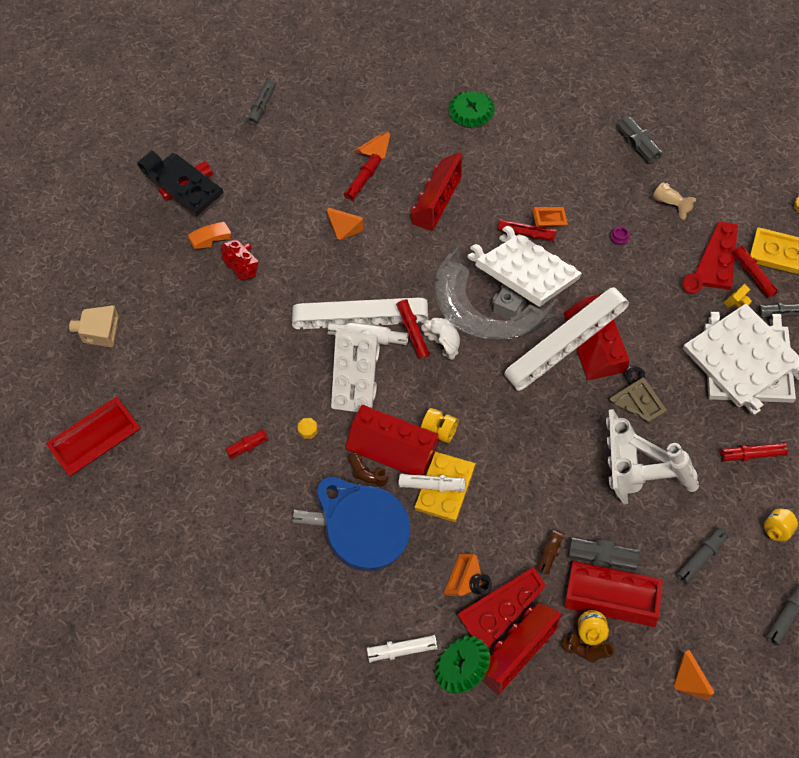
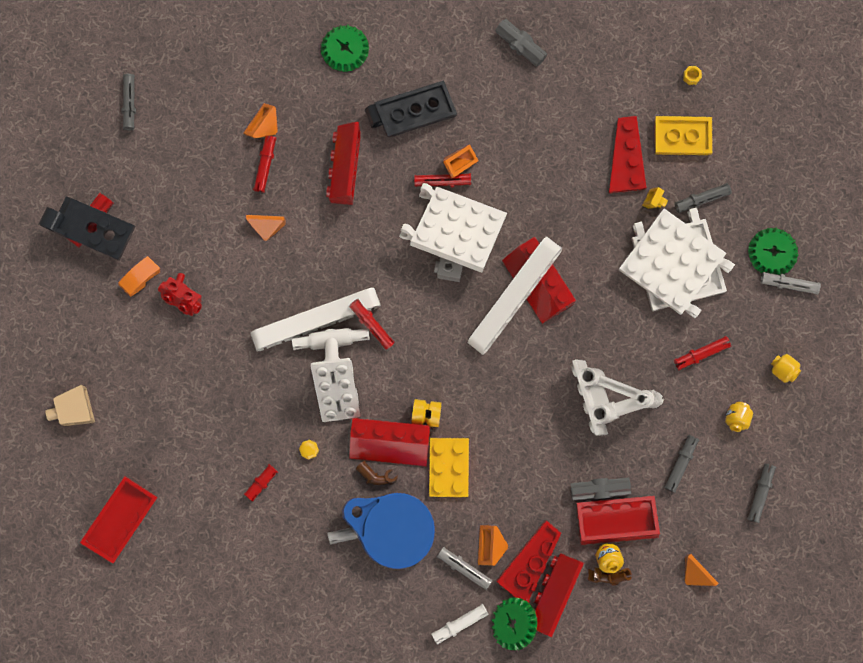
camera: 20 degrees left, 20 degrees up
(427, 591) = (445, 554): none -> light grey pin
(430, 482) = (439, 472): white pin -> none
(443, 333) = (401, 317): white hair -> none
(455, 306) = (423, 300): clear windscreen -> none
(485, 587) = (507, 548): black bush -> none
(501, 165) = (396, 113): none -> black hinge
(550, 551) = (556, 501): reddish brown piece -> none
(620, 235) = (531, 160): magenta plate -> none
(629, 370) = (583, 303): black bush -> none
(640, 401) = (594, 333): dark tan wing -> none
(668, 195) = (568, 104): tan animal -> none
(692, 283) = (610, 195): red tile -> none
(750, 265) = (666, 168): red pin -> none

